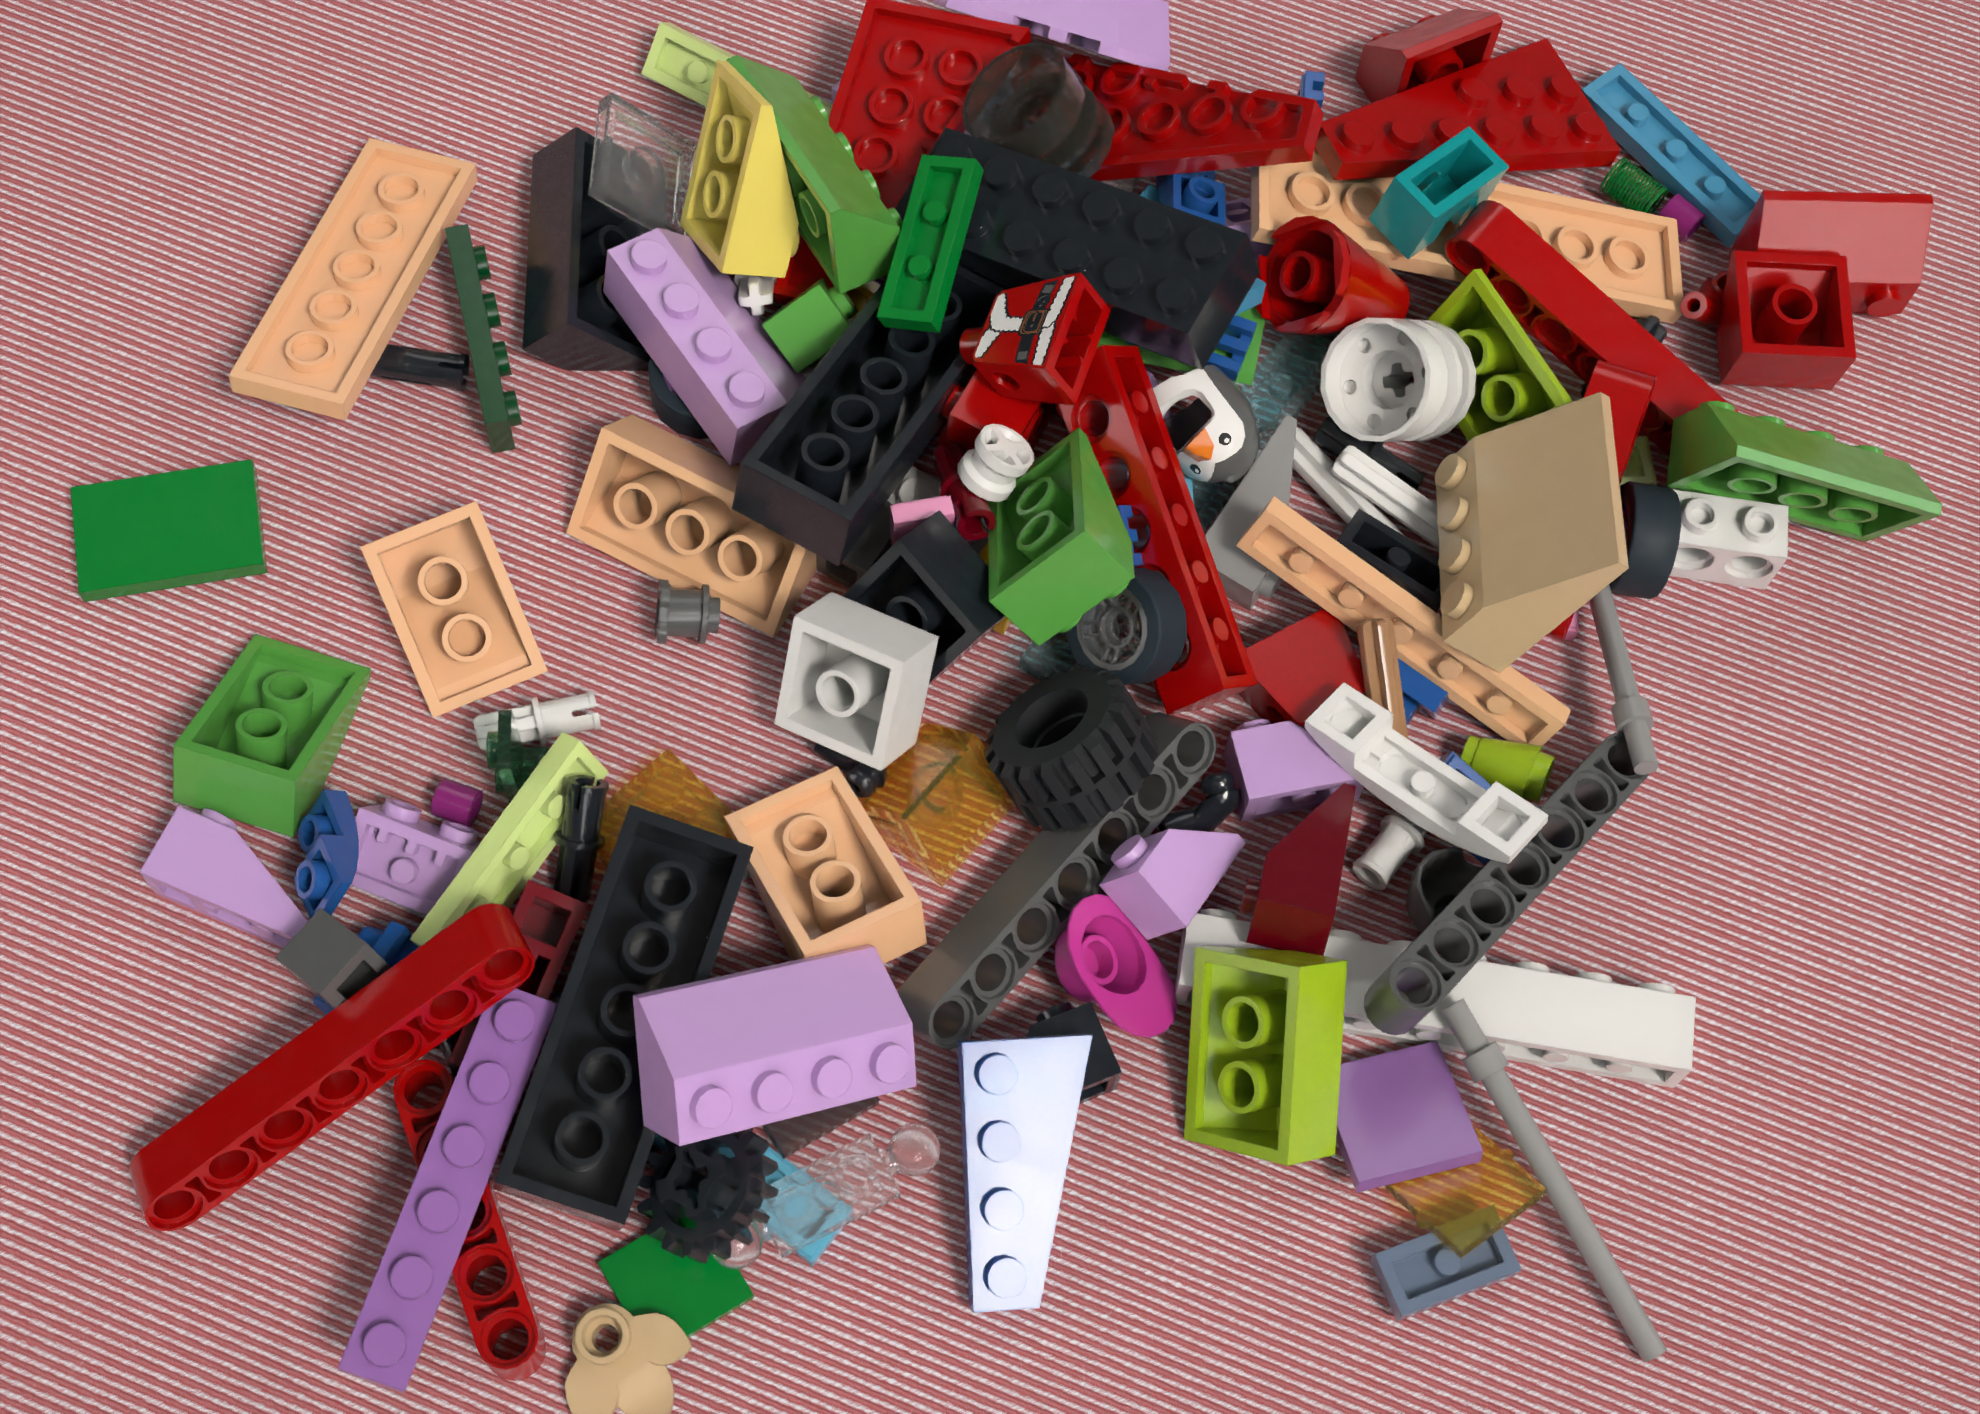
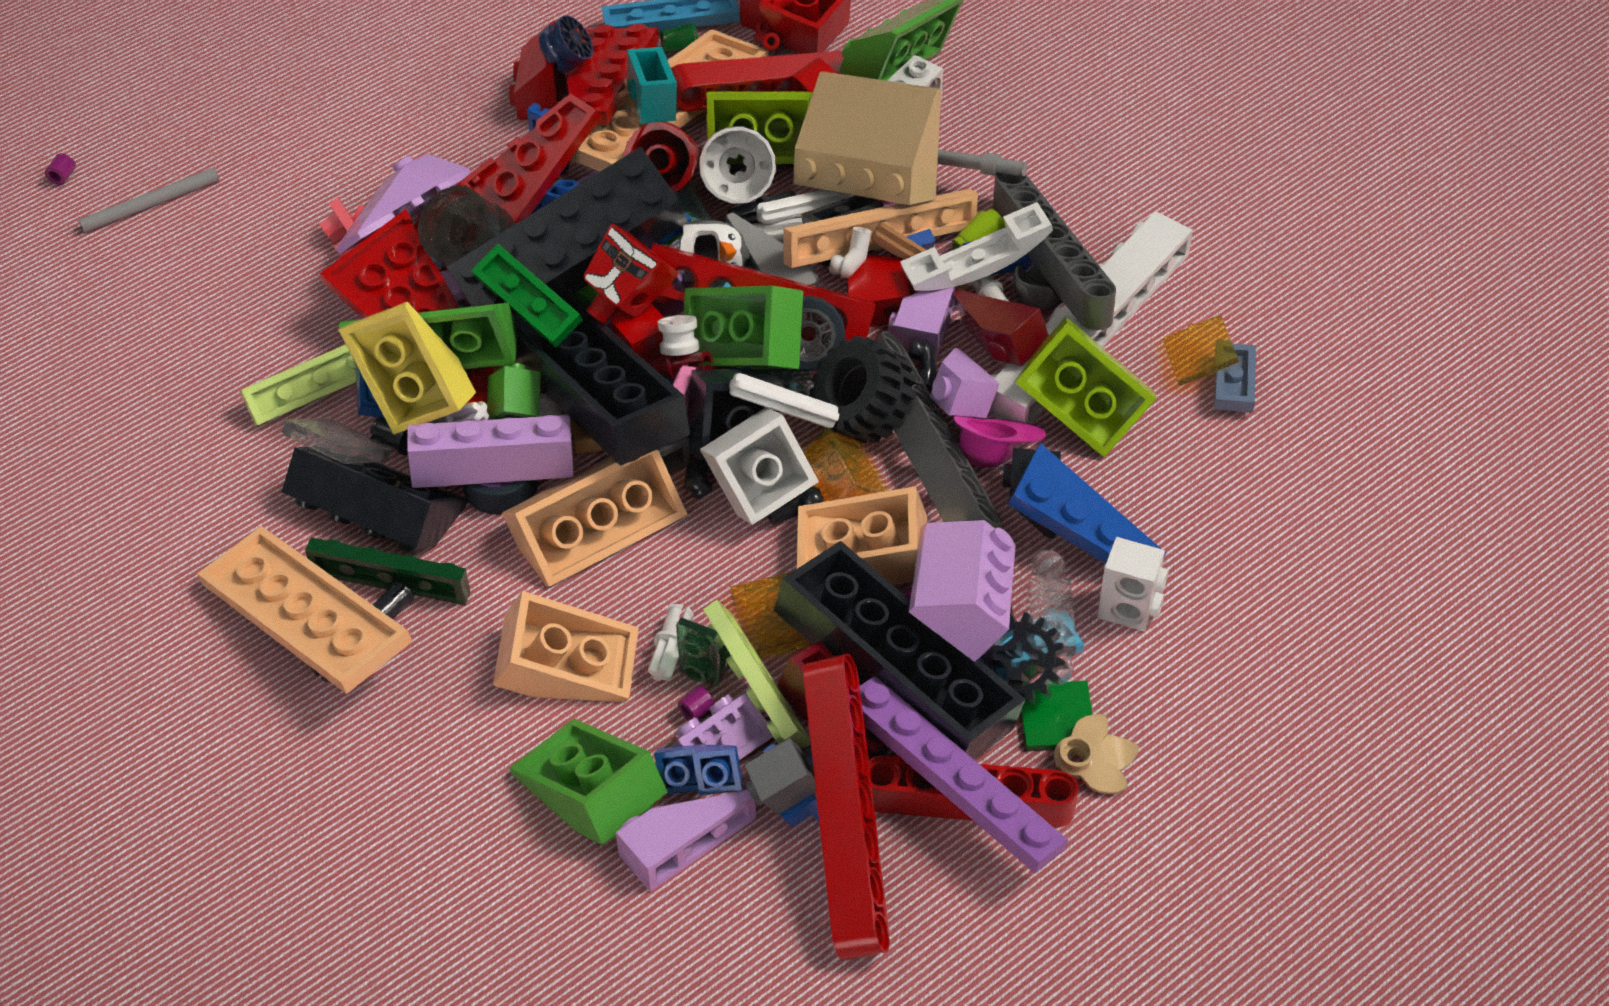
camera: 55 degrees left, 15 degrees down
(168, 530) = (400, 790): green tile -> none
(580, 836) = (763, 637): black axle -> none
(685, 613) = (648, 543): dark grey brick -> none
(923, 1284) = (1132, 584): none -> white brick
(956, 653) = (783, 400): none -> white axle
(1316, 619) = (856, 255): none -> white arm
(1402, 1118) = (1152, 355): medium lavender tile -> none
(1452, 48) = (564, 44): none -> dark blue wheel
(1486, 1064) = (1146, 303): light grey bar -> none
(1687, 216) = (705, 25): magenta piece -> none

